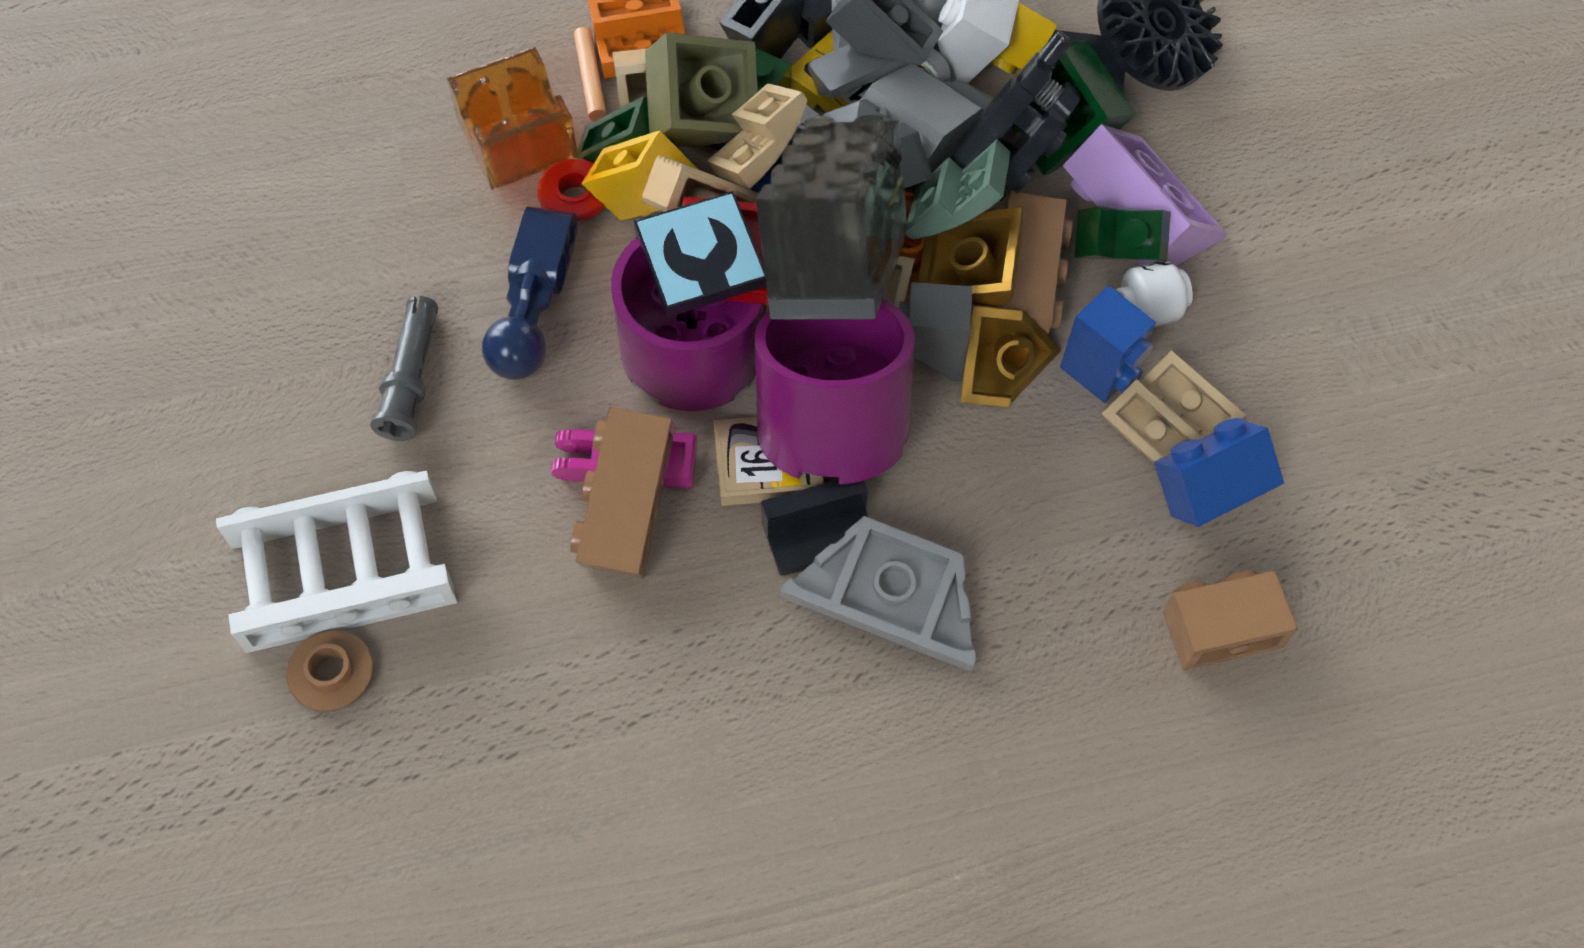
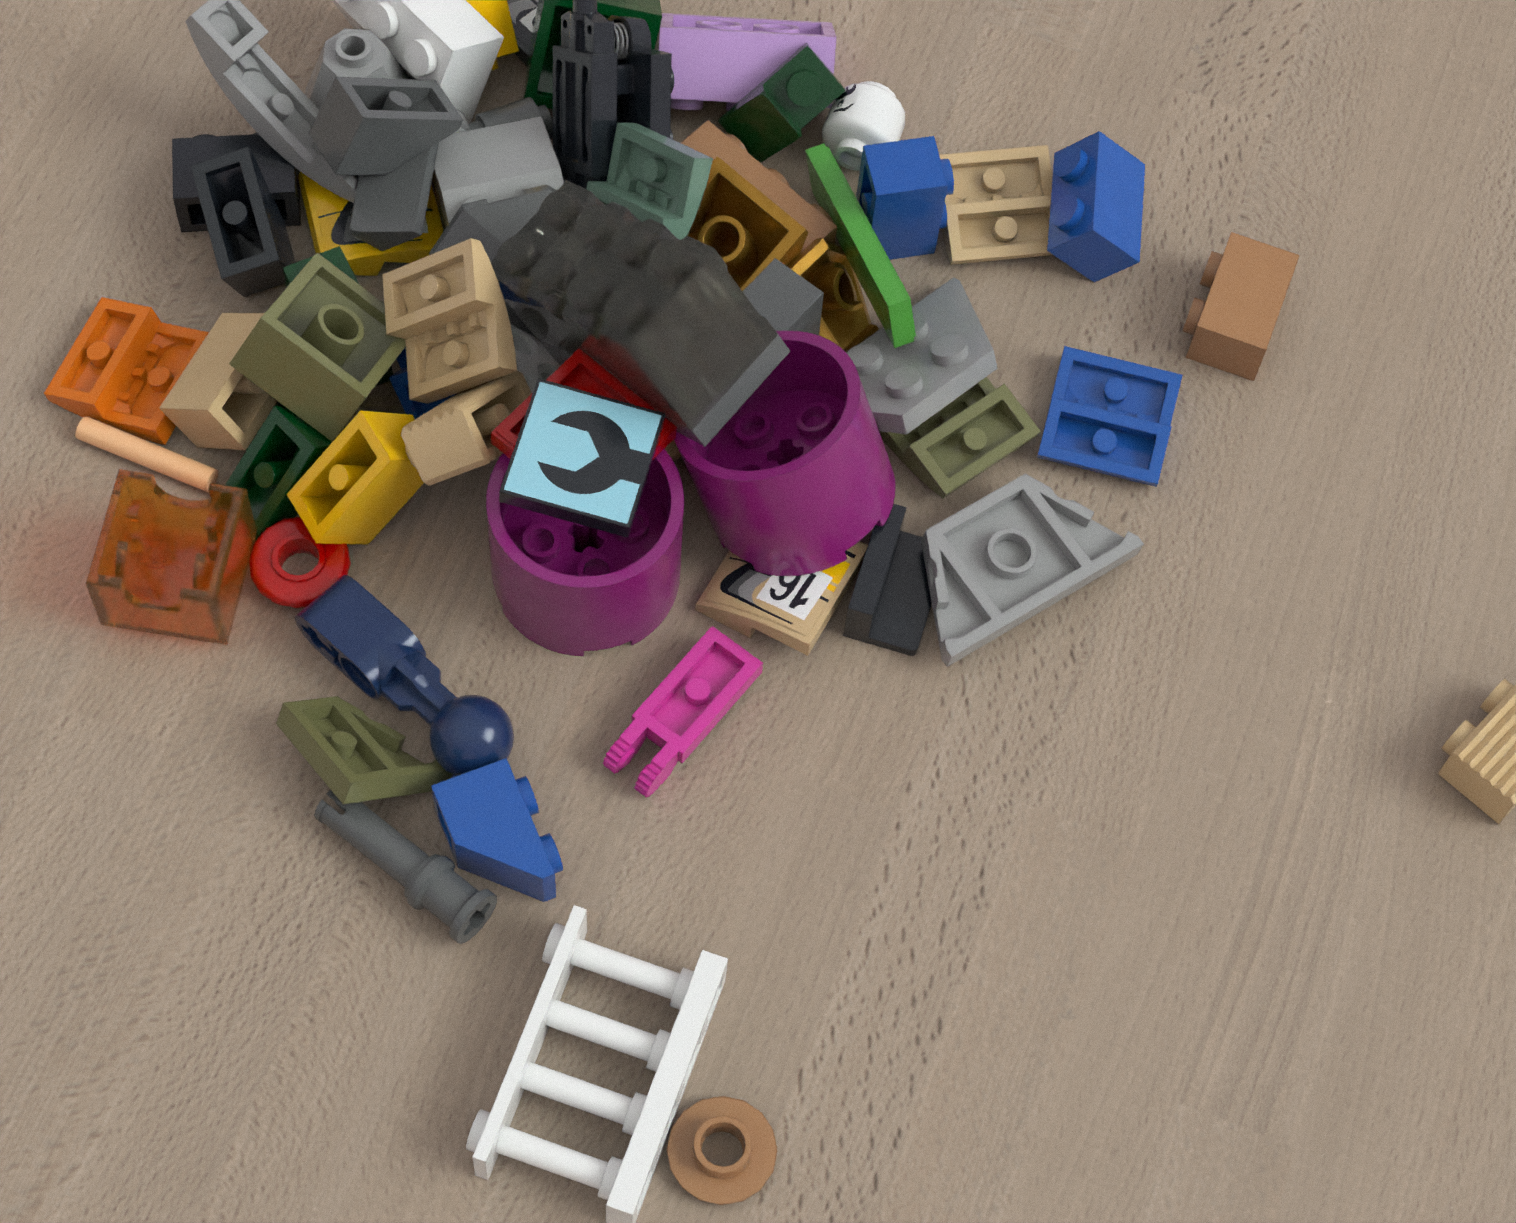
camera: 60 degrees left, 0 degrees up
(460, 295) = (354, 753): none -> olive wing
(462, 400) = (493, 831): none -> blue slope
(623, 492) = (744, 729): medium nougat brick -> none
(973, 488) = (964, 437): none -> olive slope
(988, 432) = (925, 375): none -> light grey wing
(1042, 348) = (861, 246): none -> bright green tile
(1064, 588) = (1110, 416): none -> blue slope

